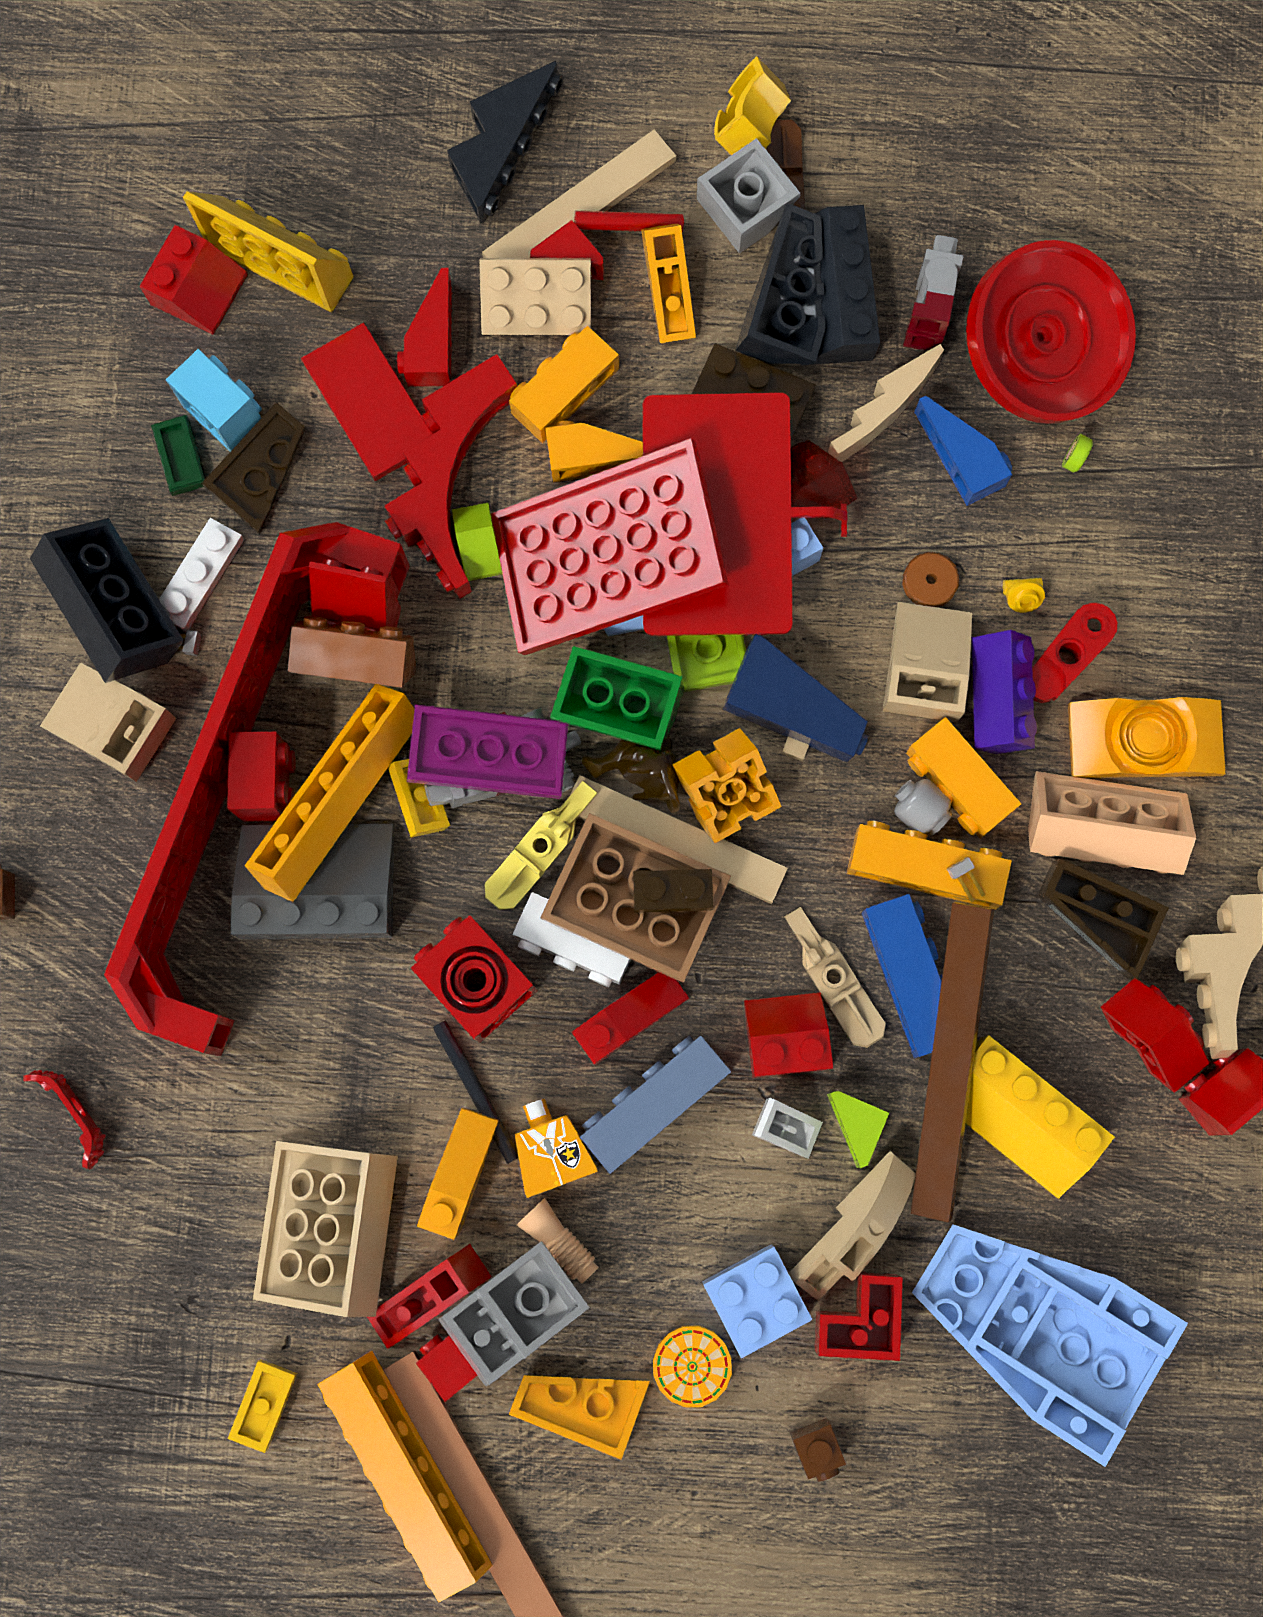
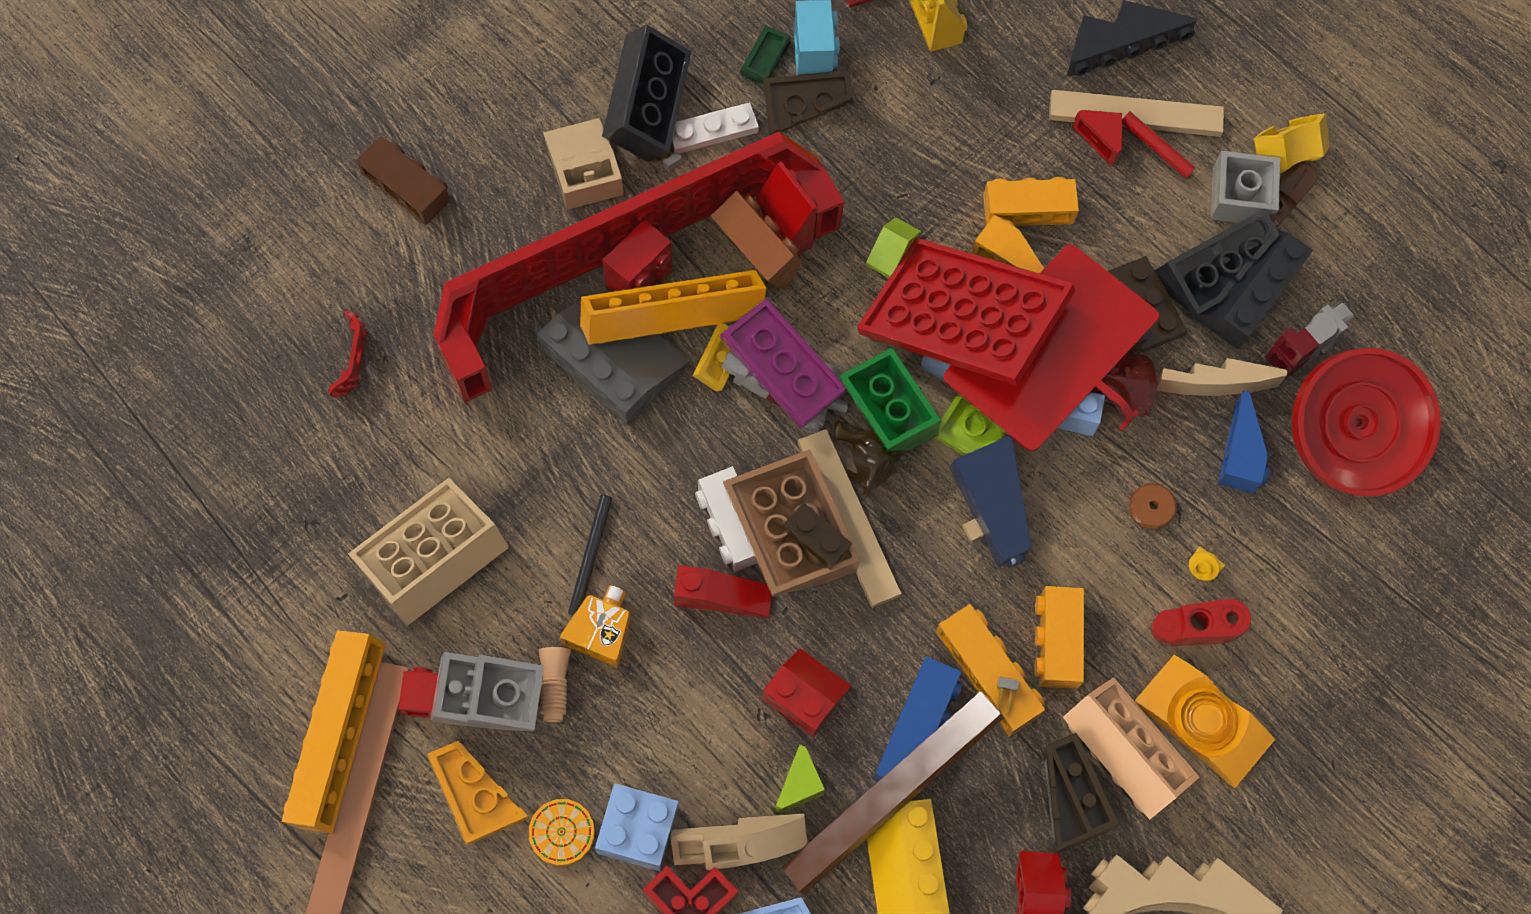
camera: 35 degrees right, 10 degrees down
(262, 1406) = (294, 617): yellow plate -> none
(367, 399) = (904, 117): red tile -> none
(429, 338) = (975, 110): red slope -> none
(429, 1296) = (432, 640): red slope -> none
(452, 965) = (650, 484): red brick -> none
(455, 419) = (945, 168): red arch -> none
(458, 1174) = (532, 589): light orange slope -> none
(525, 863) = (746, 452): light yellow piece -> none
(535, 295) = (1060, 138): tan plate -> none
(654, 1104) = (687, 656): sand blue brick -> none
(669, 282) = (1149, 198): light orange slope -> none
(727, 785) = (909, 508): light orange brick -> none
(787, 1128) = (753, 743): white slope -> none
(845, 999) = (866, 703): tan piece -> none
(922, 806) = (1020, 631): light grey head -> none
(929, 662) = (1103, 550): tan slope -> none
(1003, 692) = (1134, 607): dark purple brick -> none
(1077, 453) = (1318, 510): lime tile -> none

